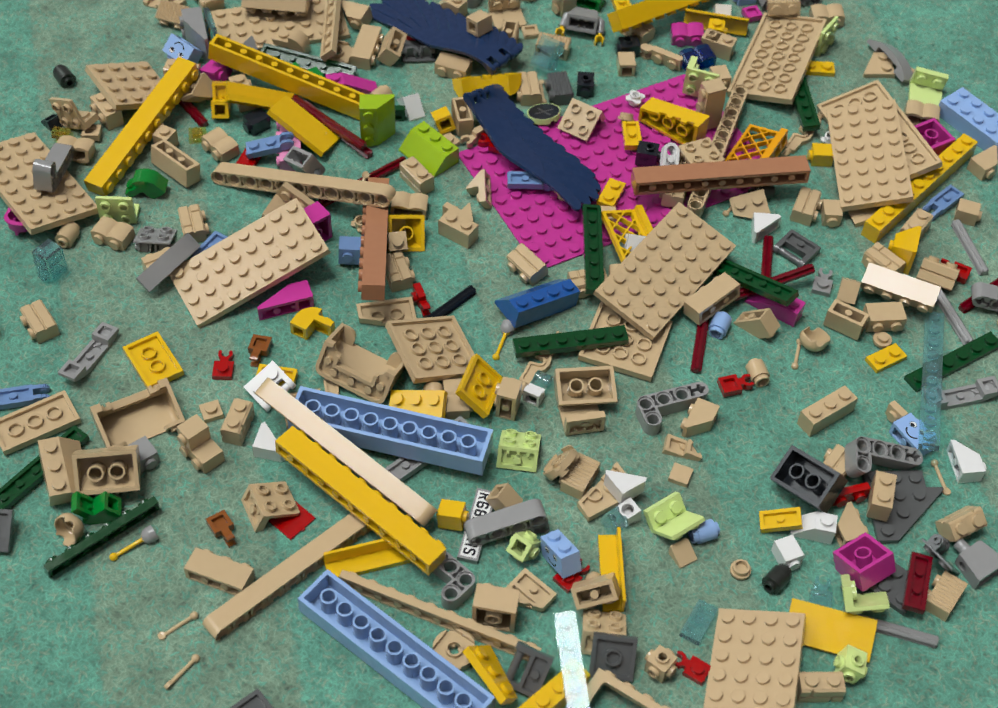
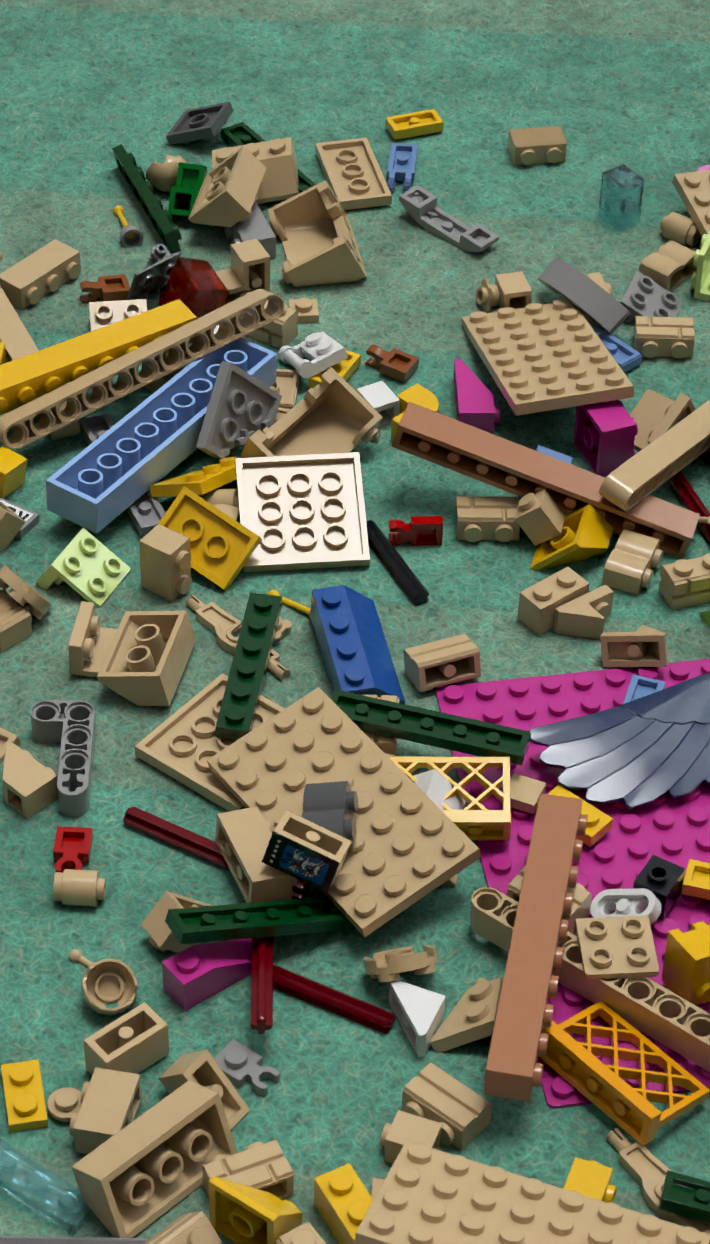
camera: 110 degrees right, 10 degrees down
(39, 321) = (522, 190): tan brick -> none
(153, 359) = (413, 272): yellow plate -> none
(165, 303) = (514, 290): none -> tan brick
(171, 315) = (487, 295): none -> tan plate
(216, 493) = (155, 275): none -> dark grey hinge
(224, 368) = (375, 331): red plate -> none
(227, 466) = (195, 285): none -> clear red slope
(308, 344) = (382, 400): none -> white brick
(360, 390) = (235, 411): none -> light grey plate
(382, 311) = (407, 494): tan wing -> none
(537, 388) = (173, 600): leg -> none
(689, 261) = (332, 807): none -> dark grey brick
(719, 325) = (206, 873): light blue brick -> none
(721, 259) = (306, 851): none -> brick
(743, 225) = (390, 963): none -> tan plate
(799, 245) = (346, 1062): dark grey plate -> none

